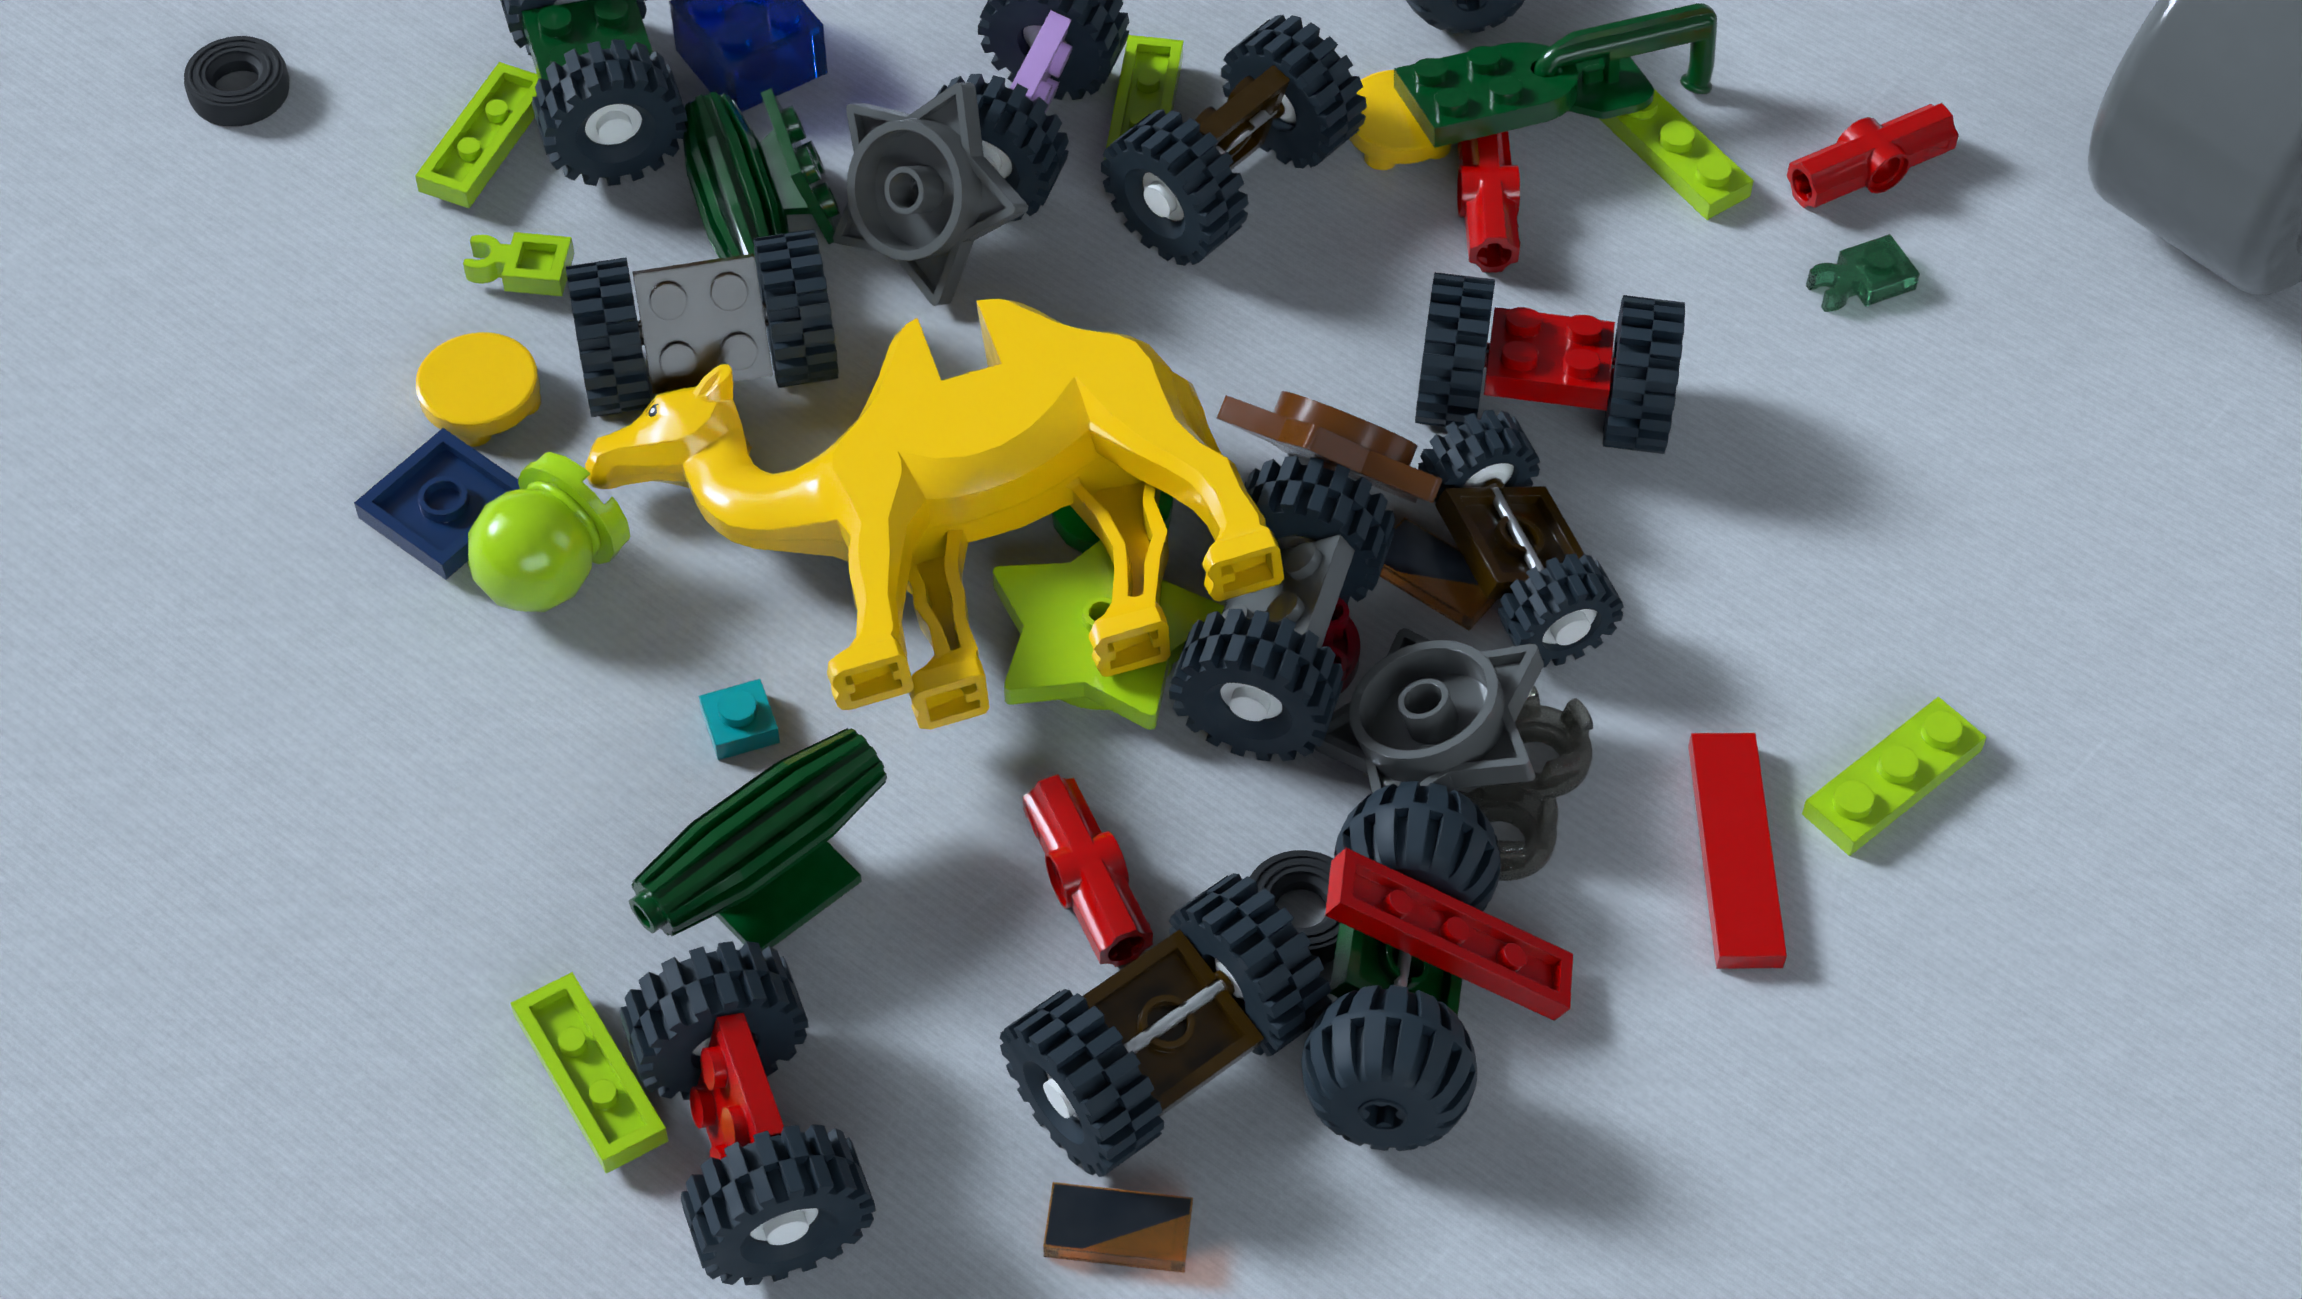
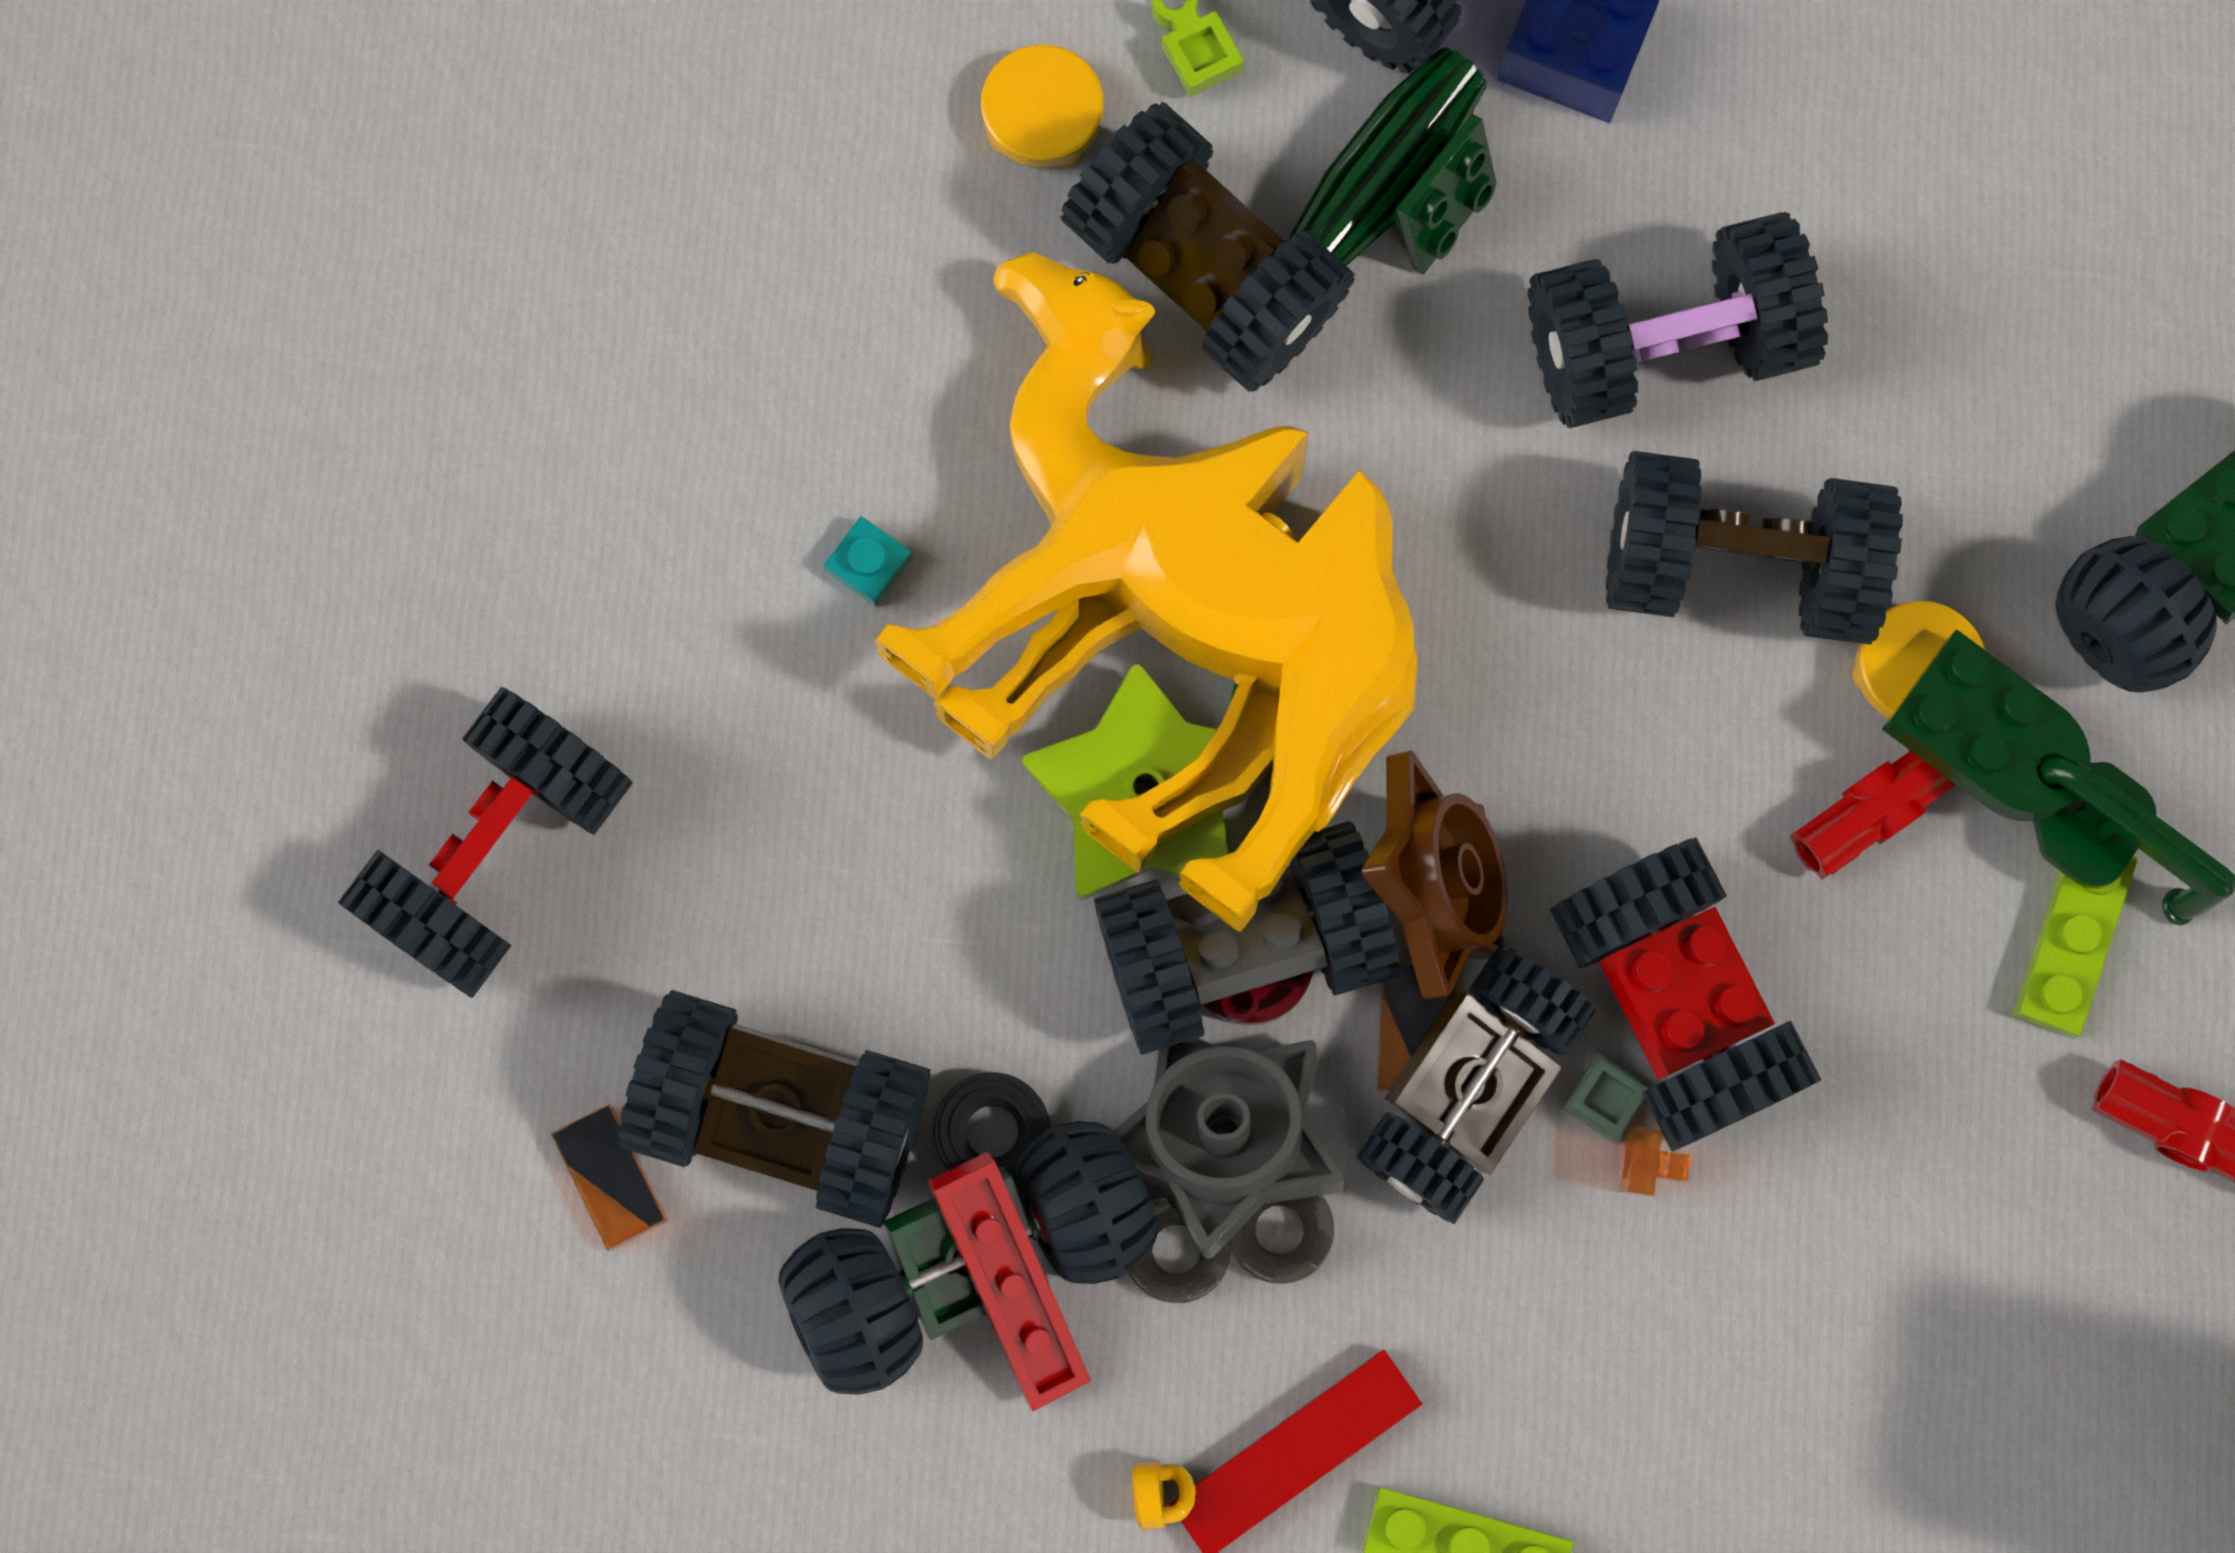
camera: 55 degrees right, 25 degrees up
(434, 501) = (906, 174): dark blue plate -> none
(541, 540) = (897, 286): lime tile -> none
(589, 1072) = (482, 662): lime plate -> none
(765, 848) = (726, 682): dark green plate -> none
(924, 188) = (1482, 322): dark grey plate -> none
(1087, 871) = (904, 939): red piece -> none
(1146, 81) = (1768, 426): lime plate -> none
(1589, 484) = (1606, 1098): none -> sand green tile
(1660, 477) = (1645, 1162): none -> clear orange tile
(1704, 960) = (1150, 1494): none -> yellow tile
(1869, 270) = (2048, 1206): clear green plate -> none

